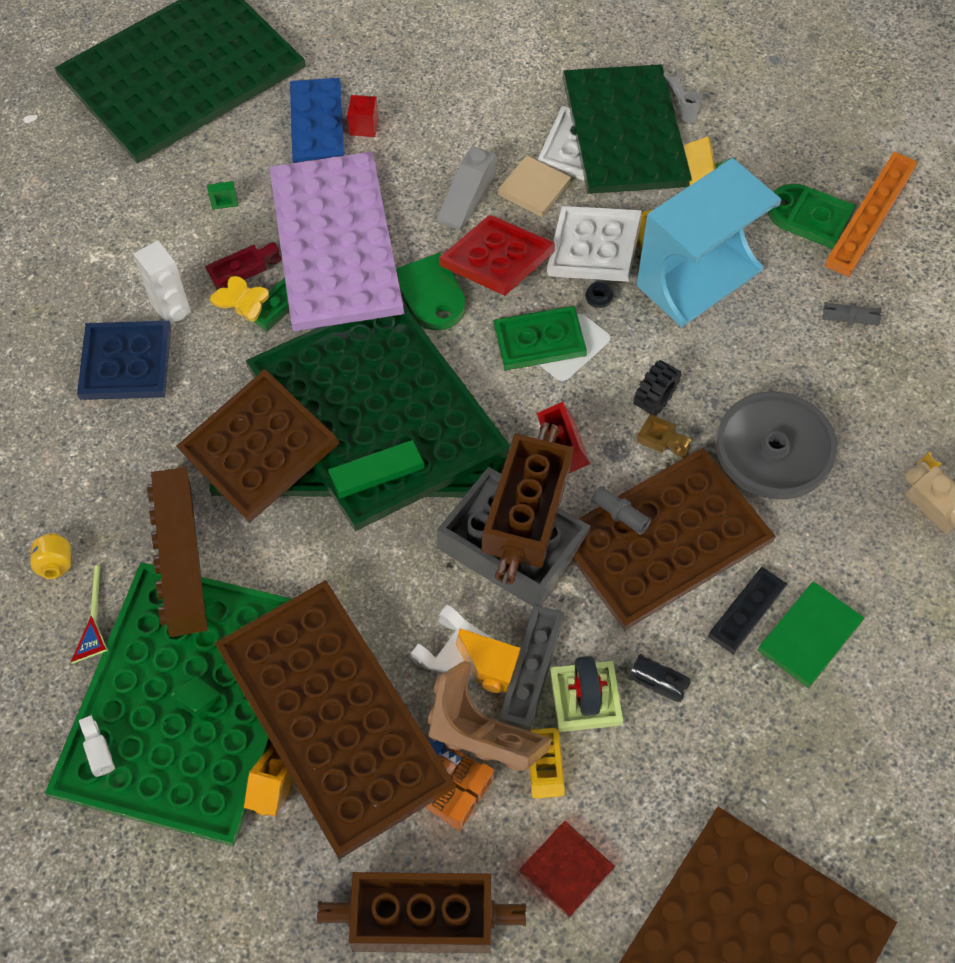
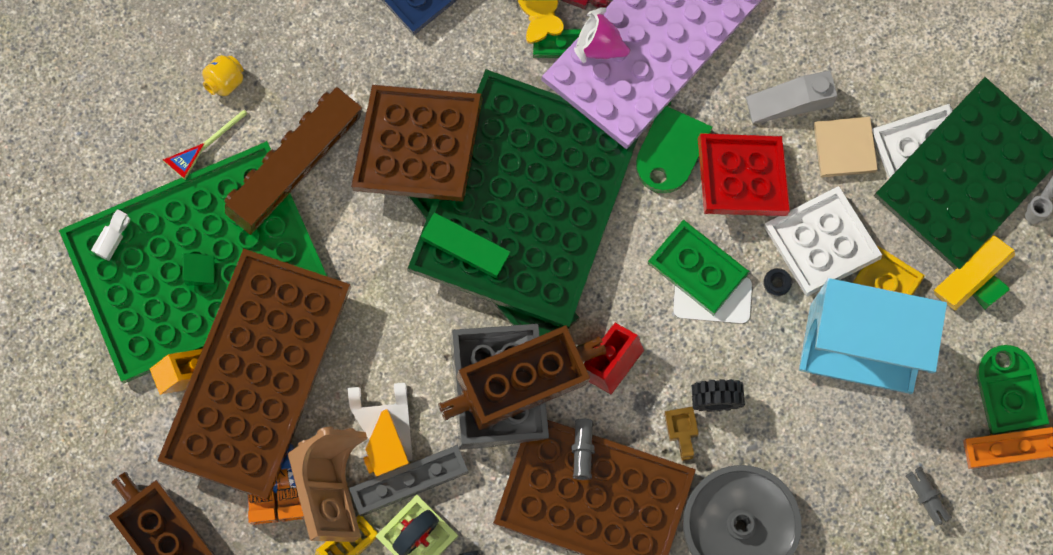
camera: 50 degrees right, 15 degrees up
(302, 259) = (600, 38): none -> dark pink hat

